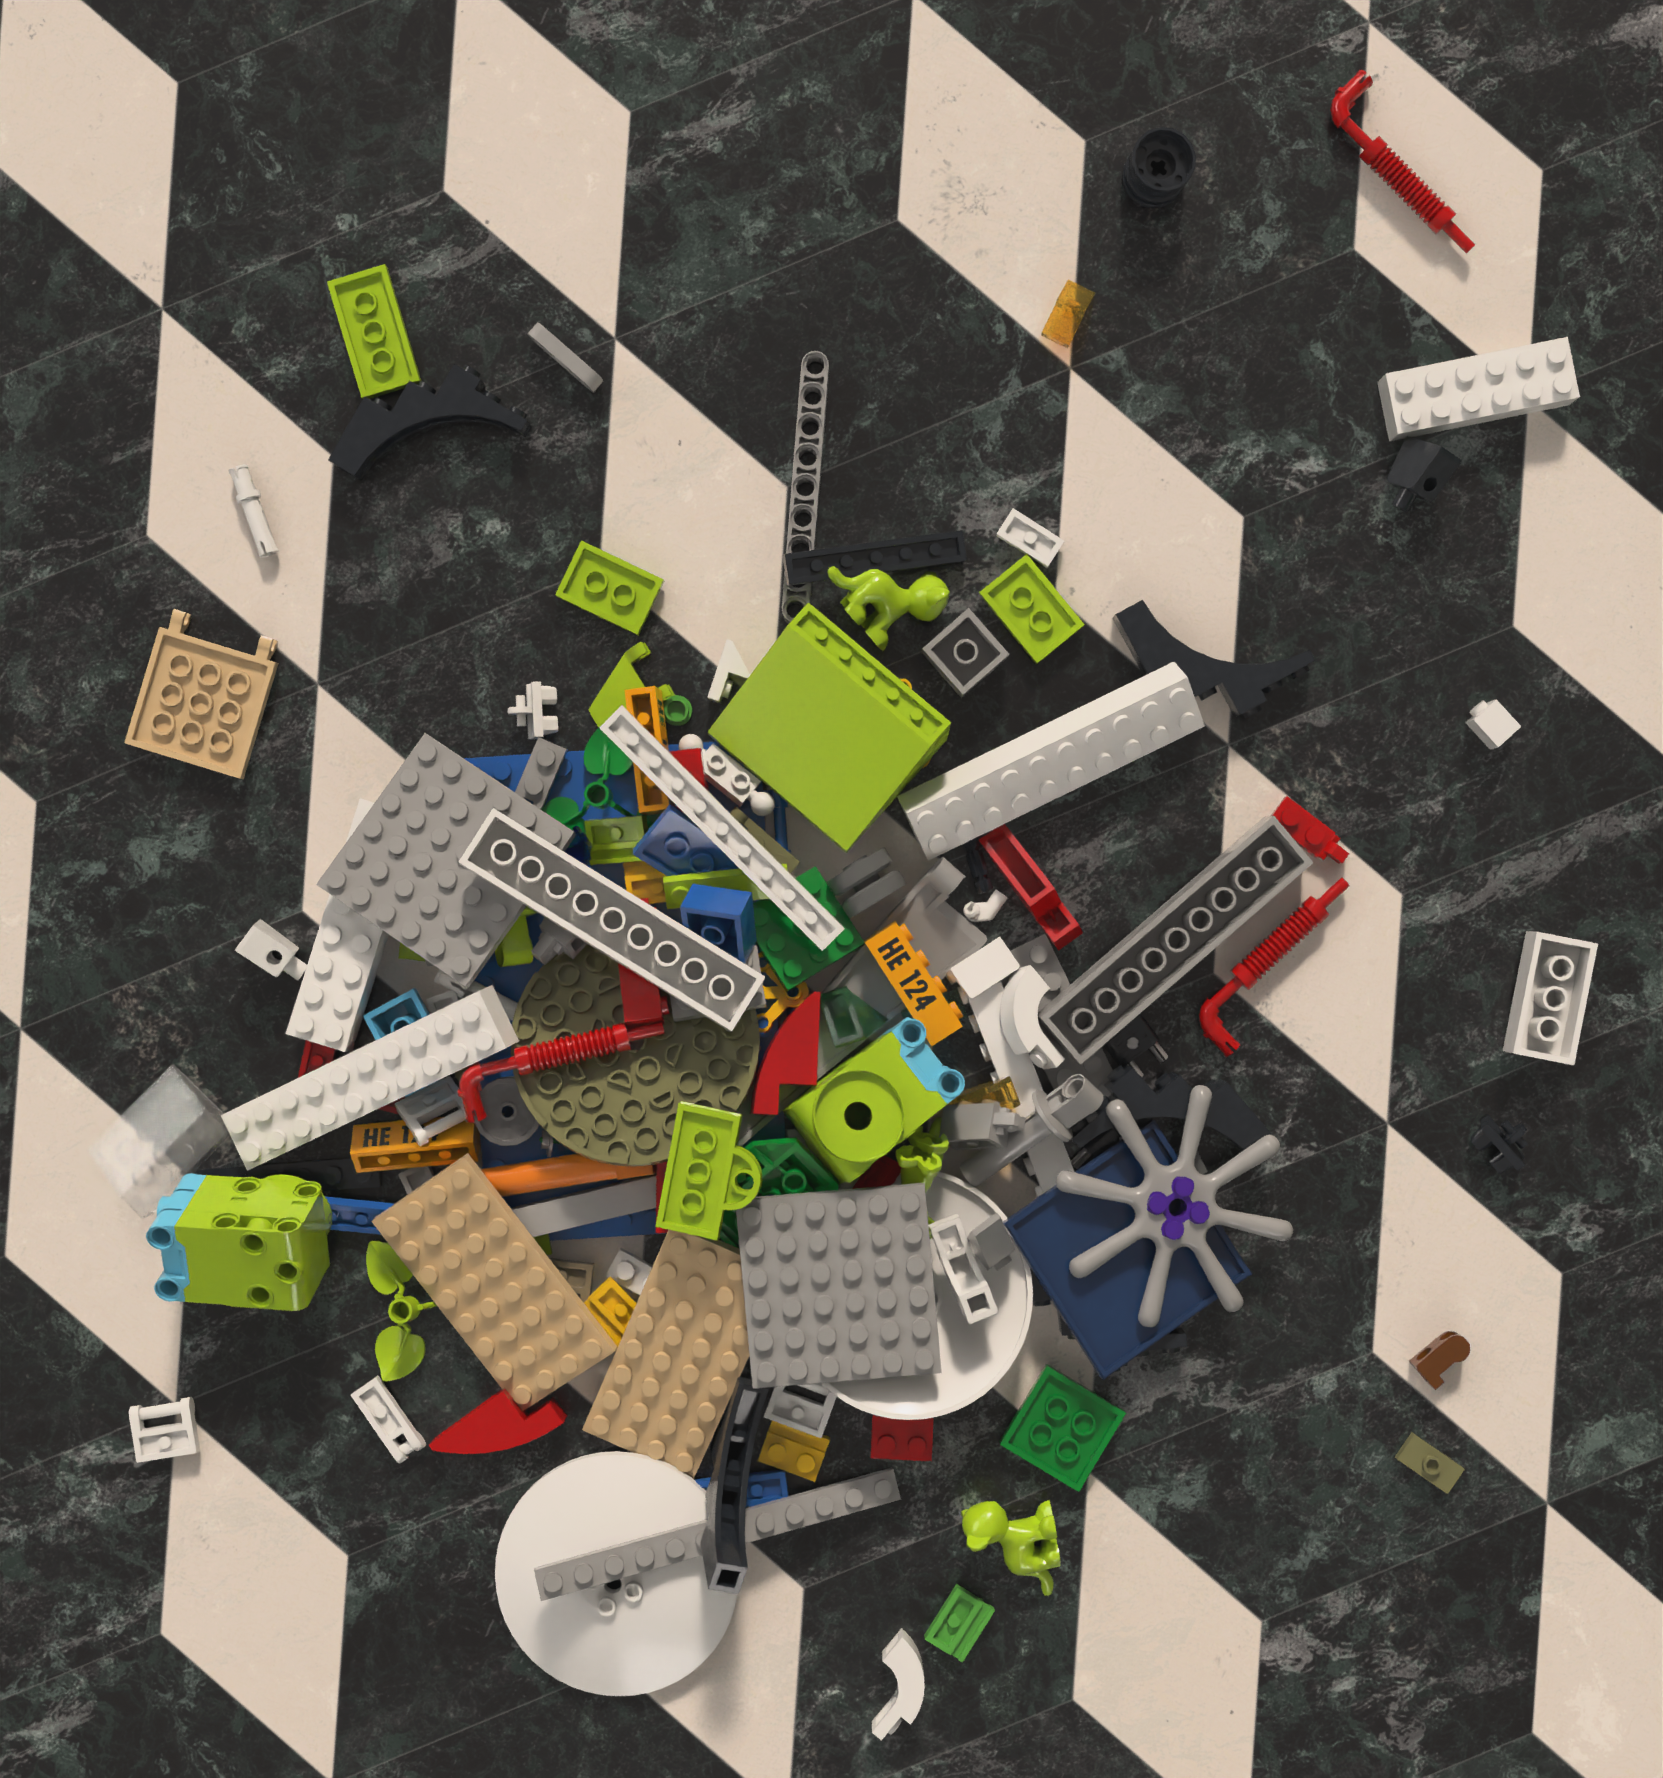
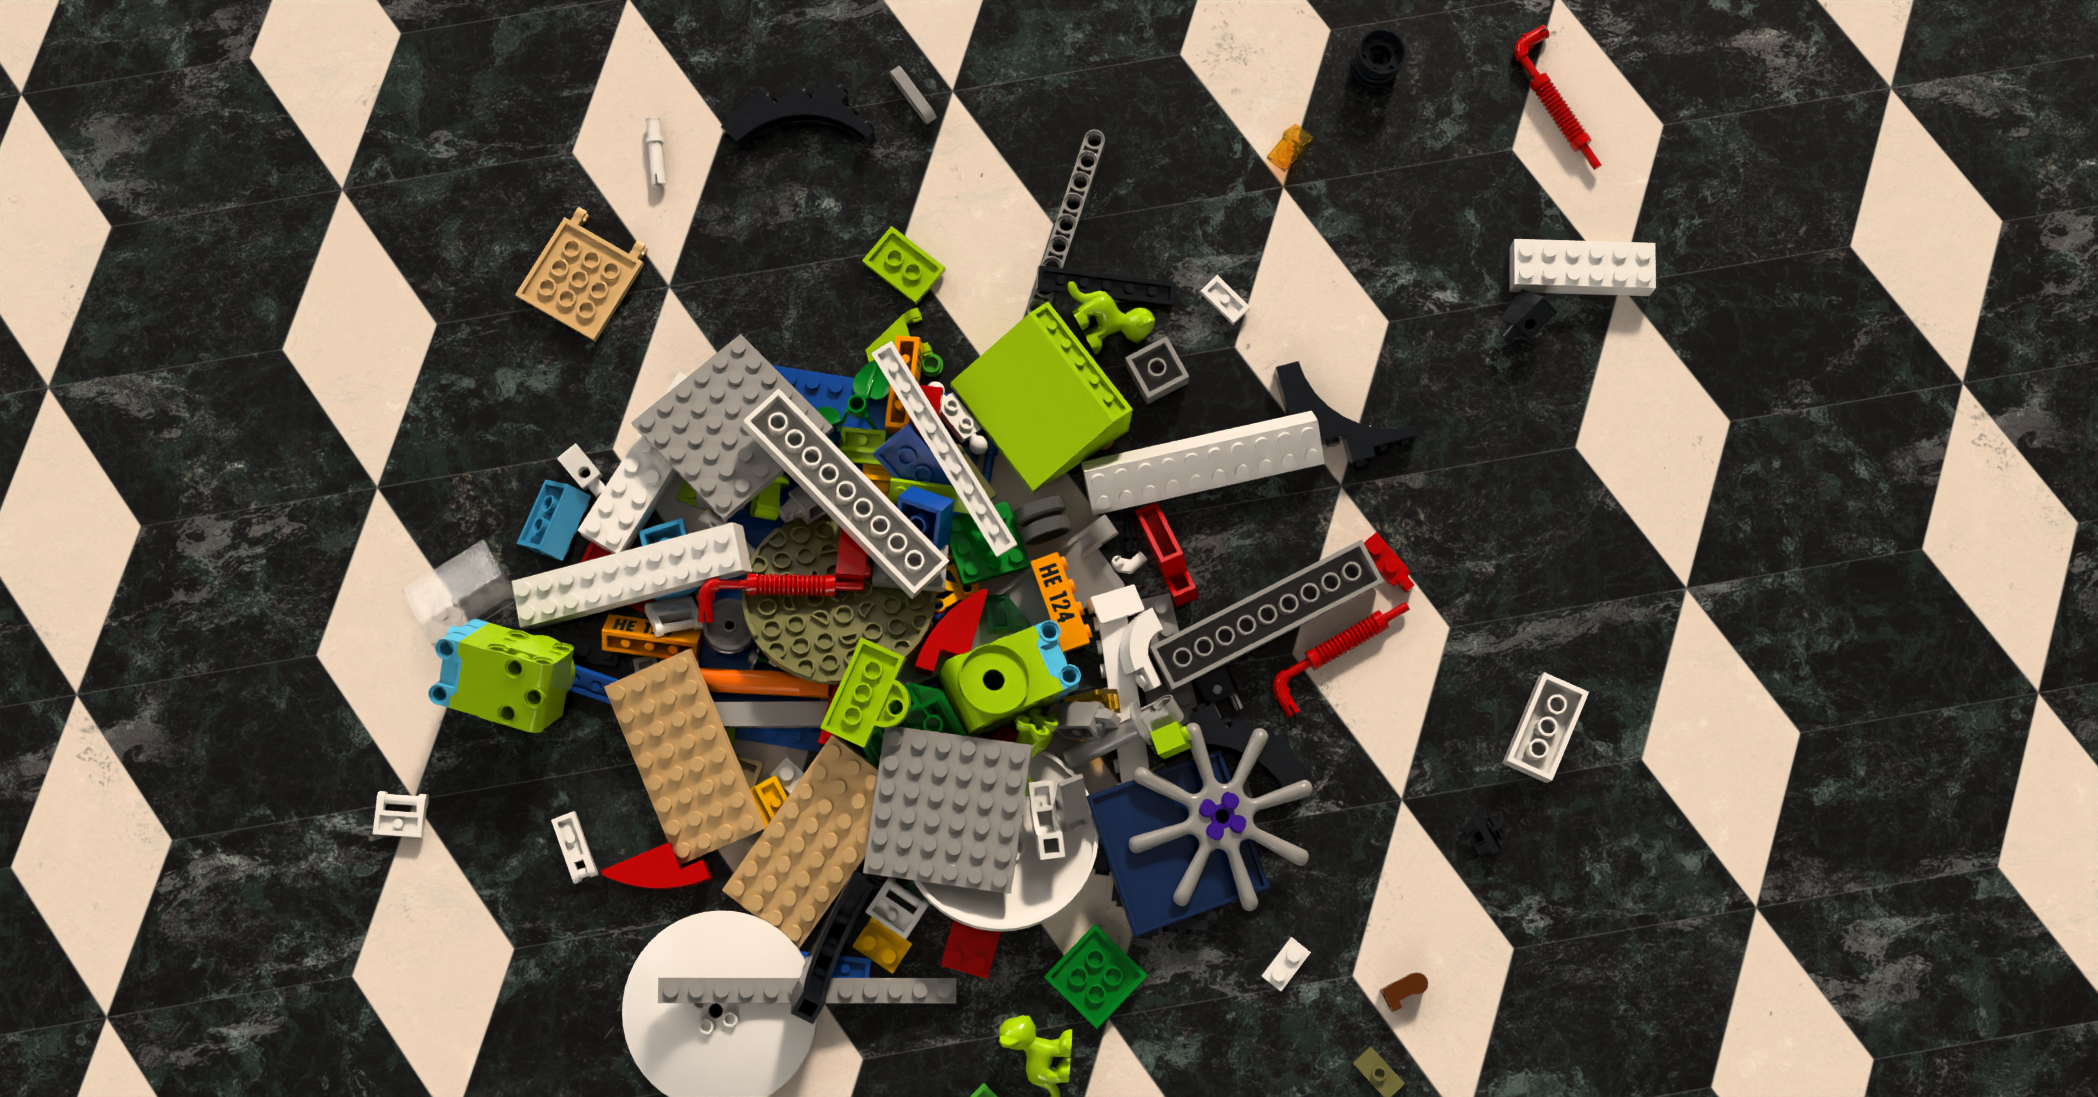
camera: 20 degrees right, 10 degrees down
(252, 1021) = (554, 519): none -> dark azure slope
(374, 331) = (777, 46): lime plate -> none
(395, 1348) = (595, 794): lime plant -> none
(536, 697) = (829, 331): white hips -> none
(541, 772) = (820, 383): light grey plate -> none
(729, 664) = (978, 341): white slope -> none
(1031, 609) = (1214, 351): lime plate -> none
(1094, 1130) = (1171, 739): none -> lime brick
(1289, 1358) = (1285, 964): none -> white plate
(1492, 723) = (1543, 513): white brick -> none

